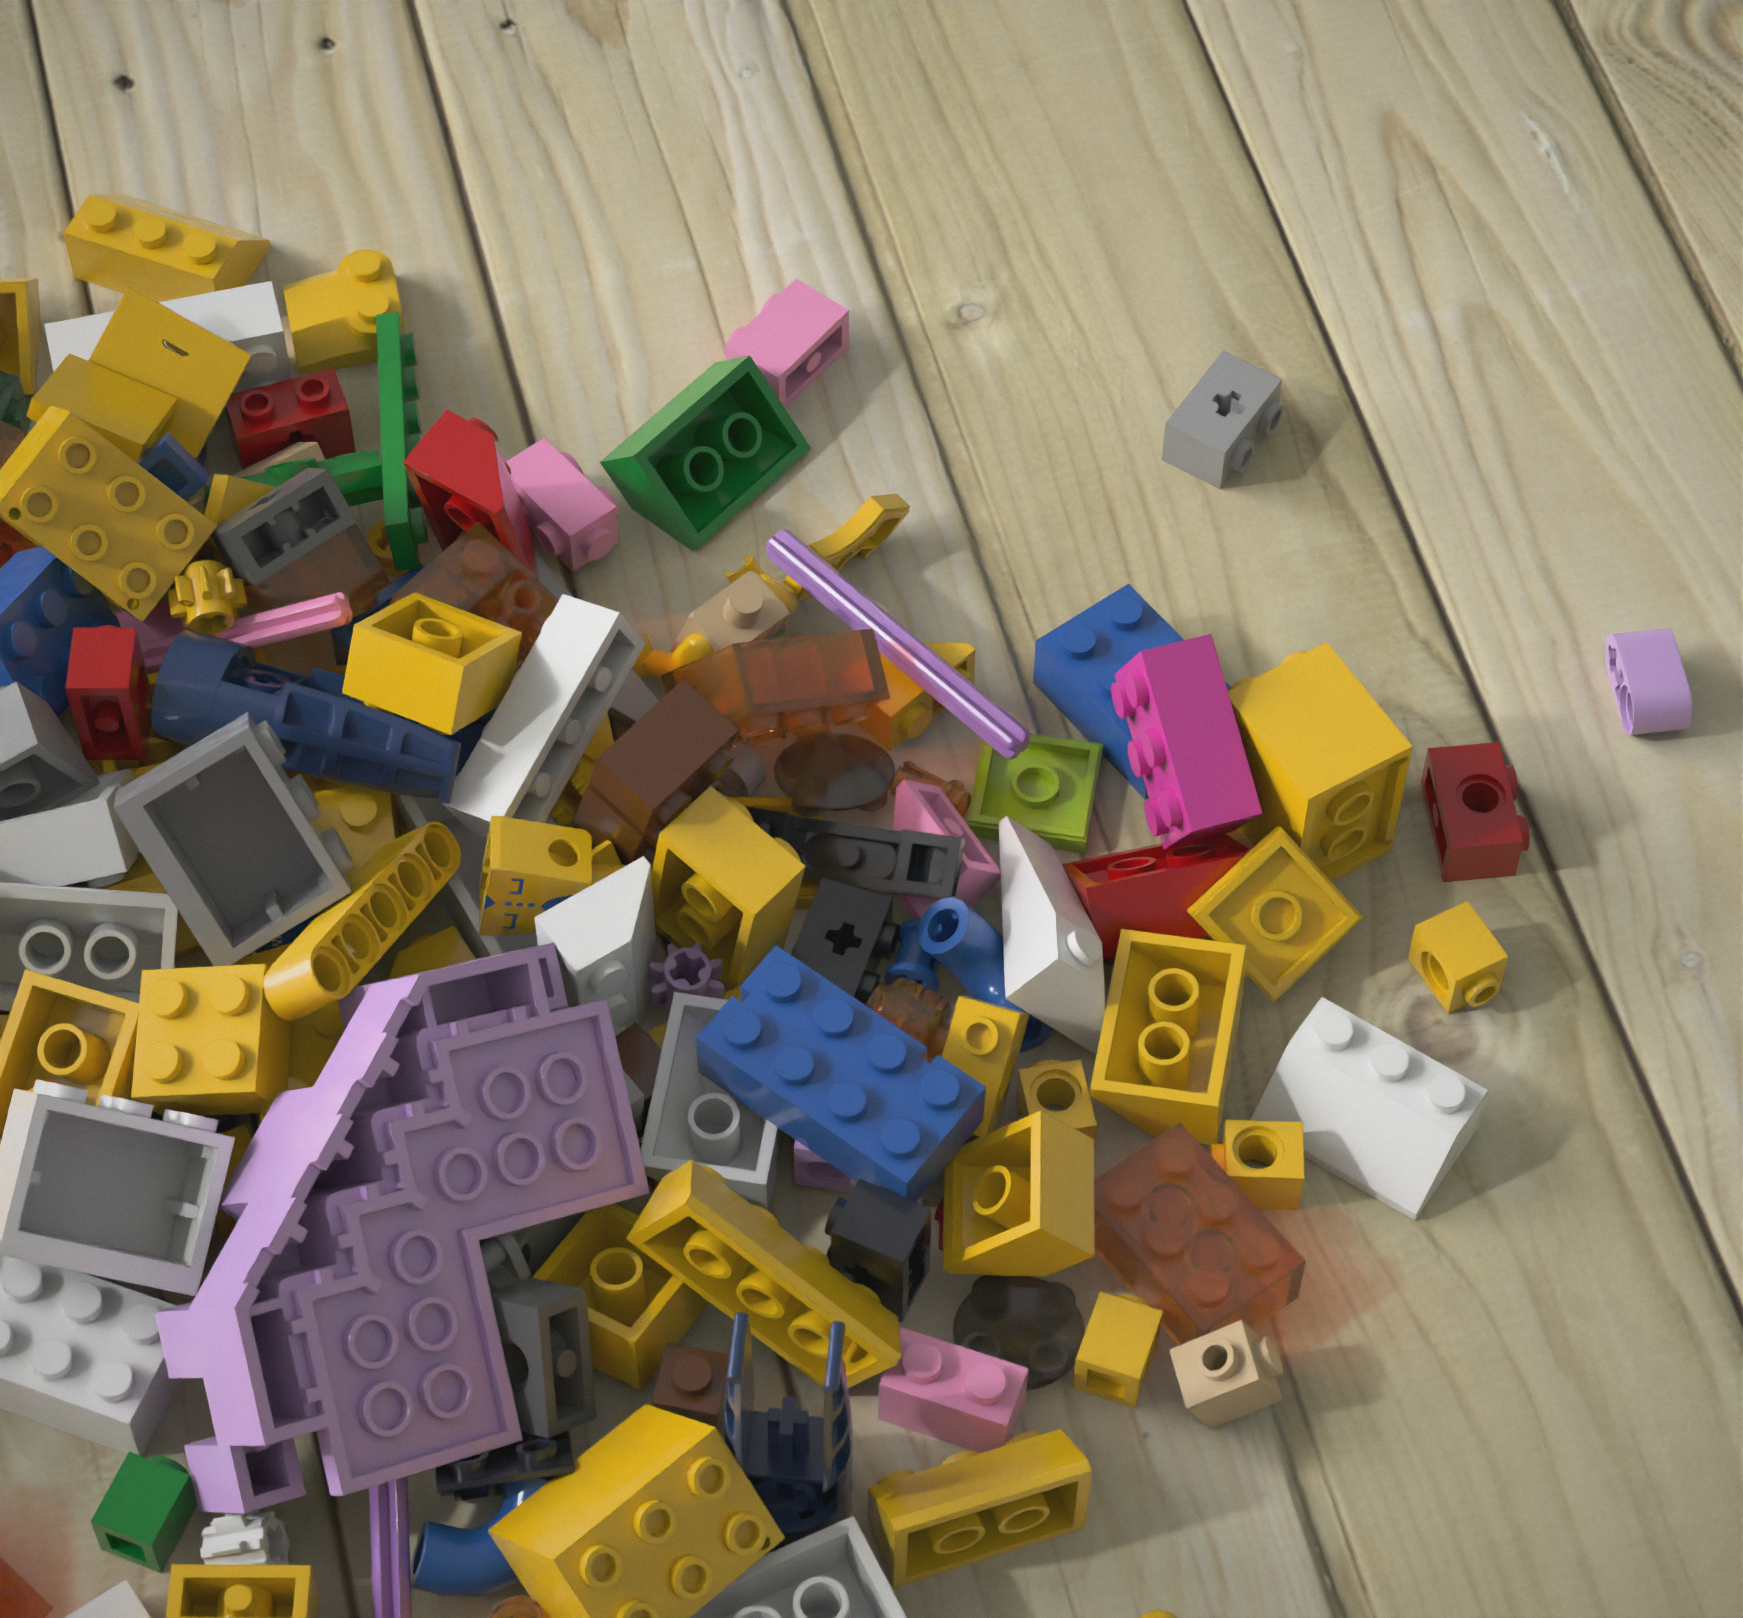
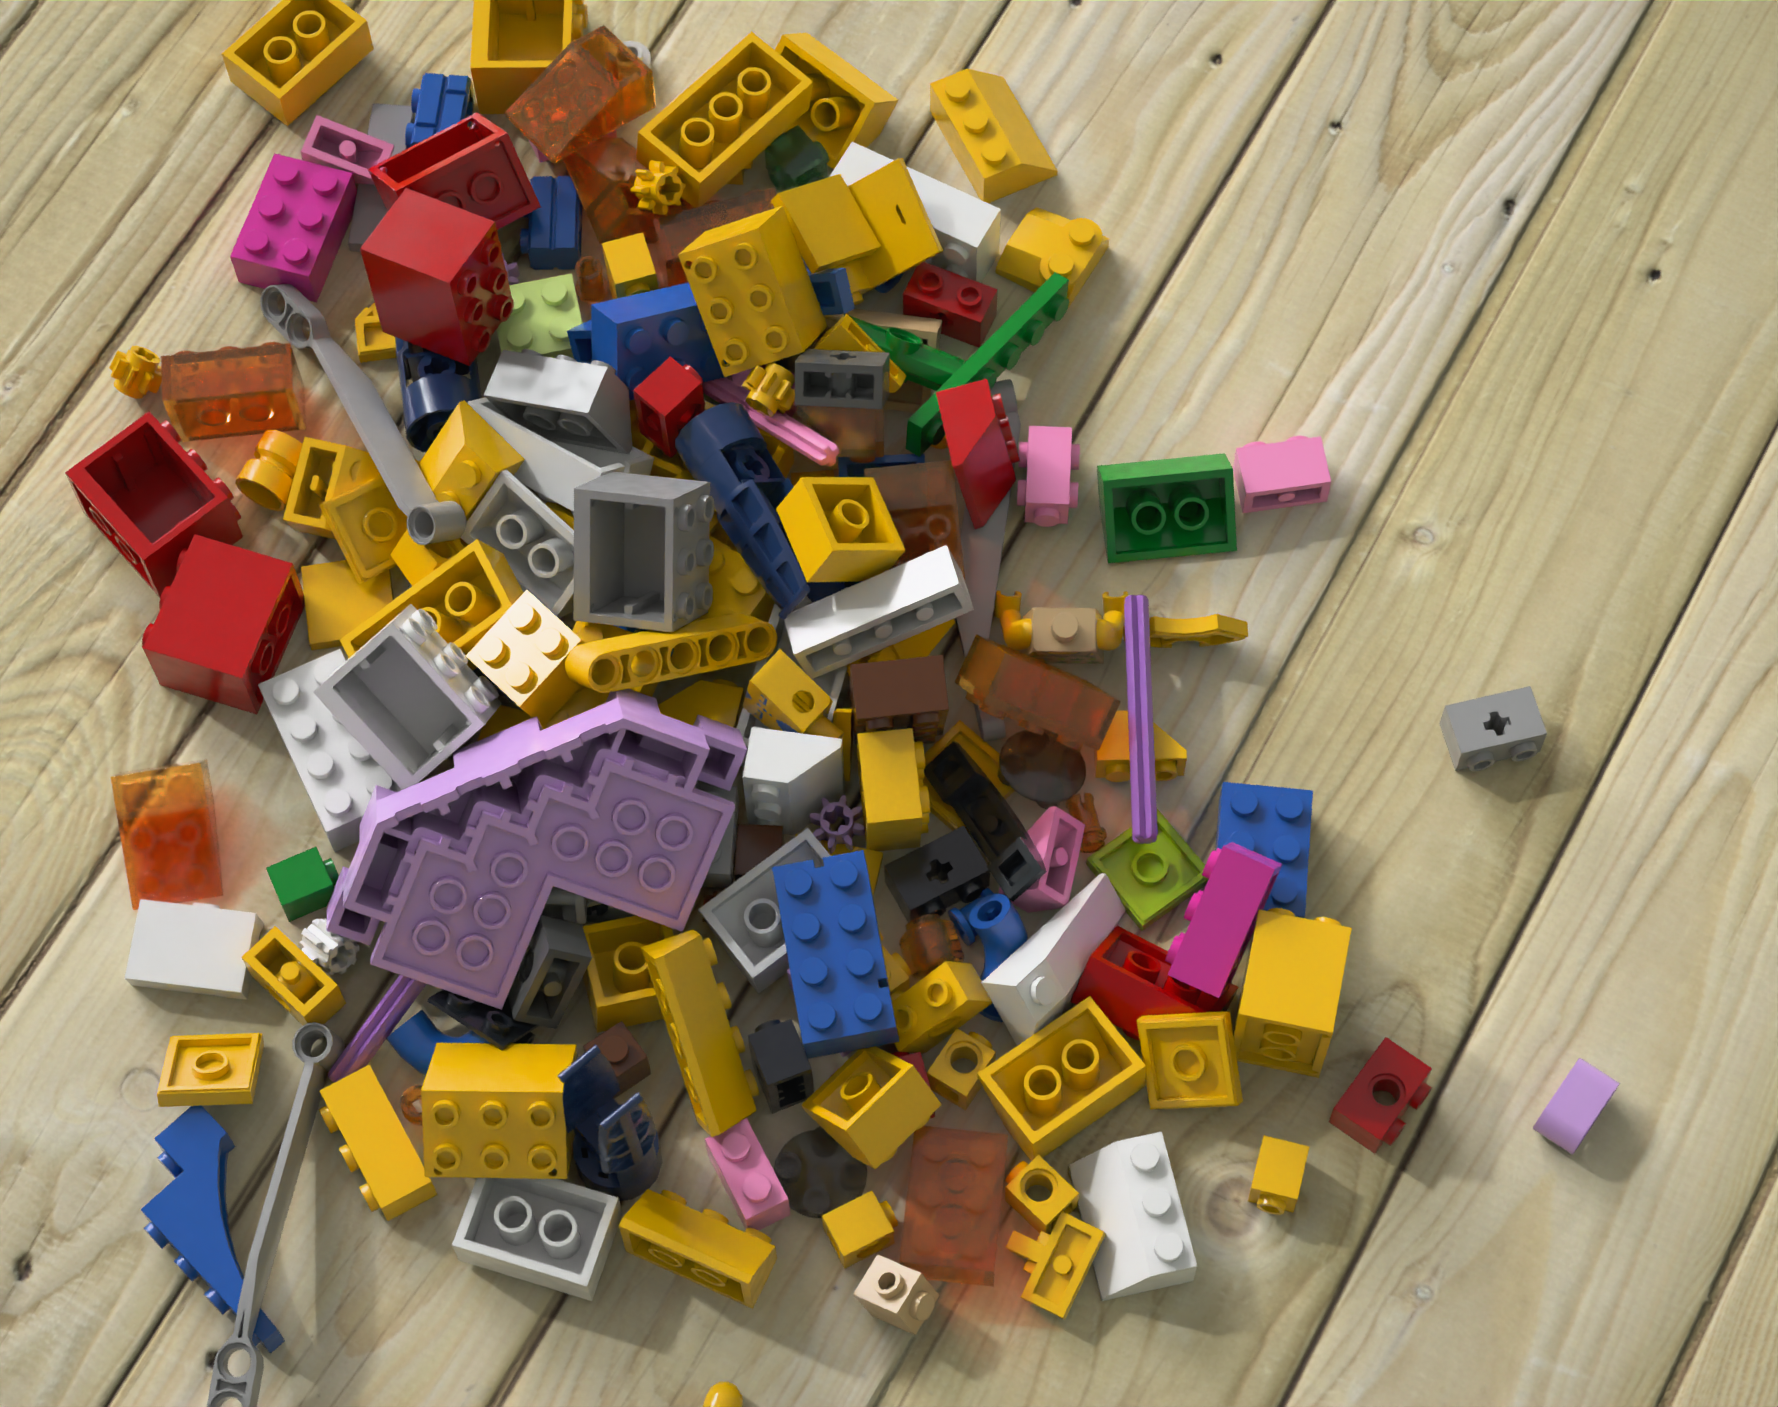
camera: 45 degrees right, 10 degrees up
(1344, 1212) = (1057, 1262): none -> yellow hinge

